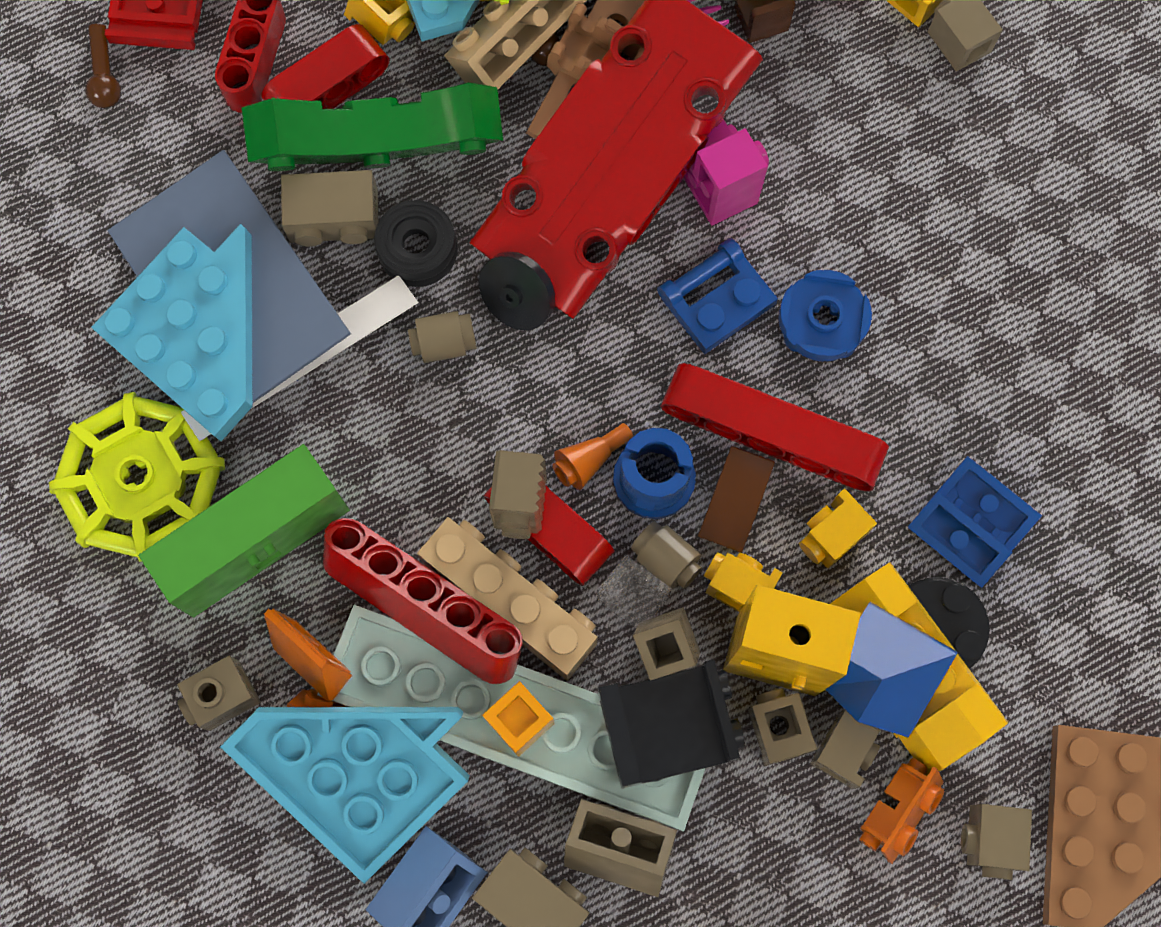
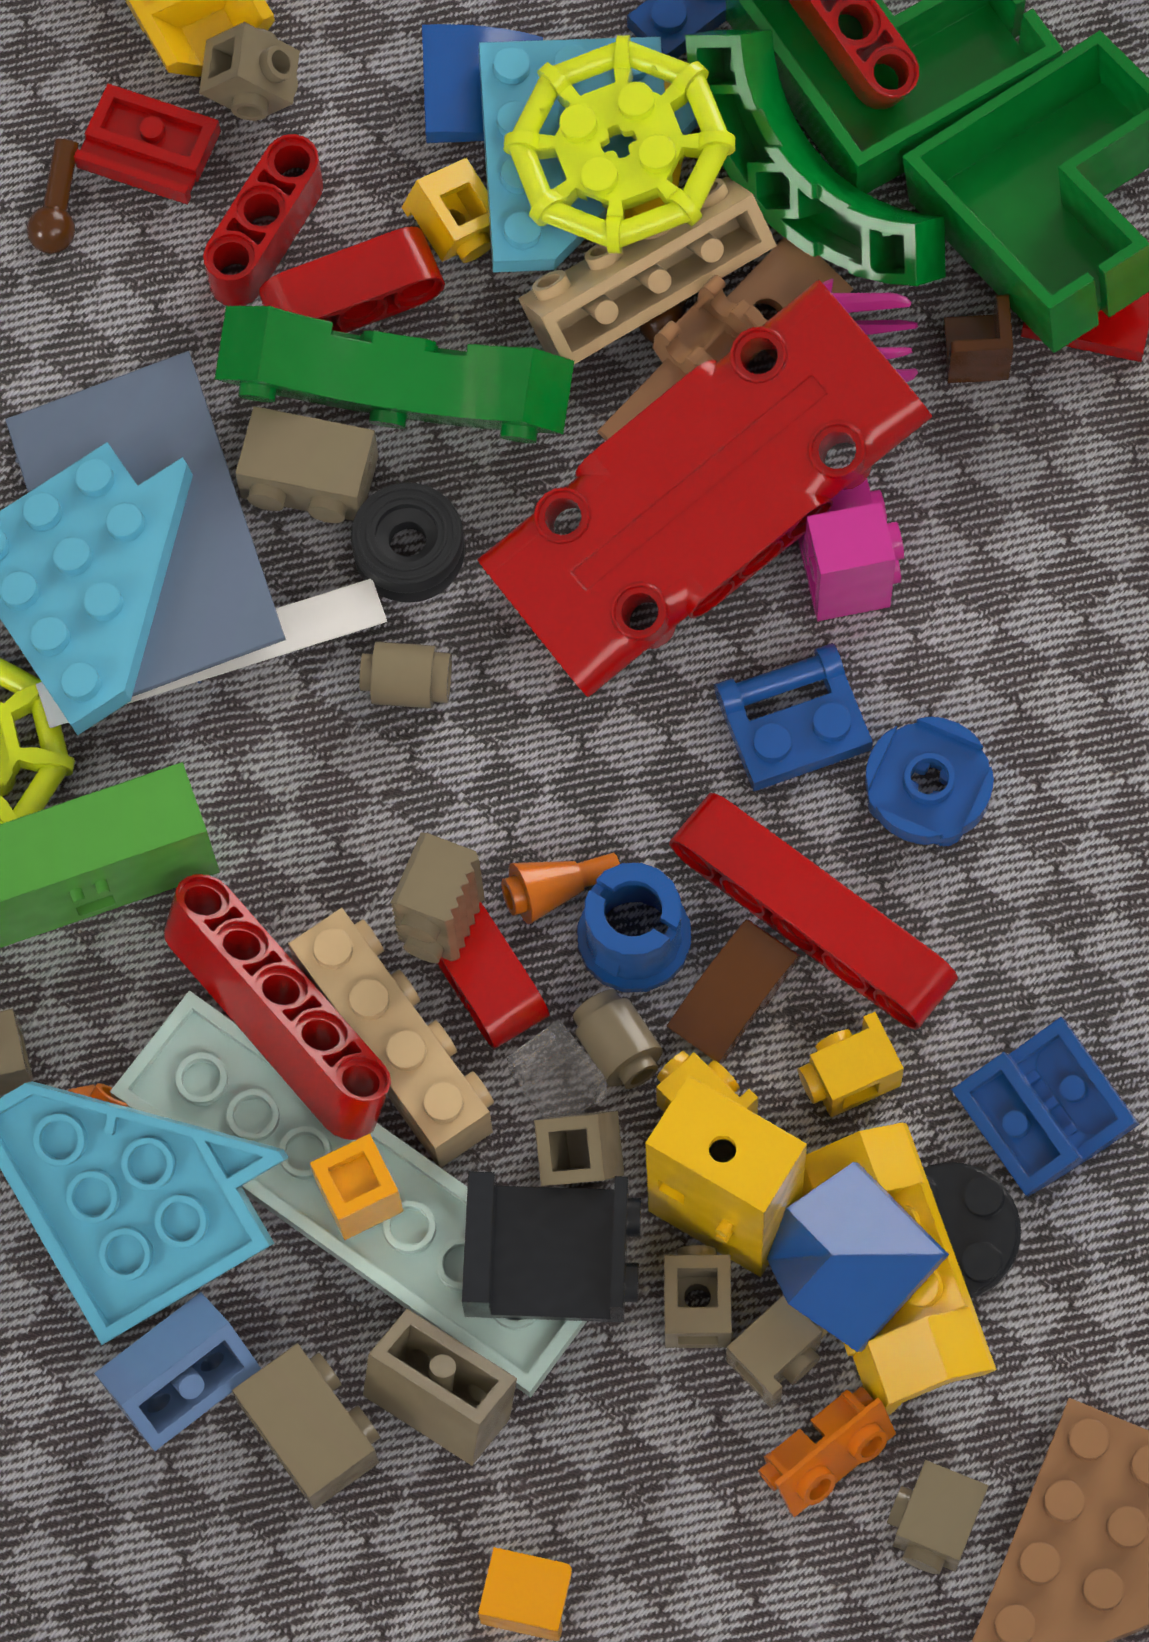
camera: 20 degrees right, 5 degrees down
(306, 655) = (109, 1037): orange slope -> none
(517, 290) = (521, 640): black piece -> none

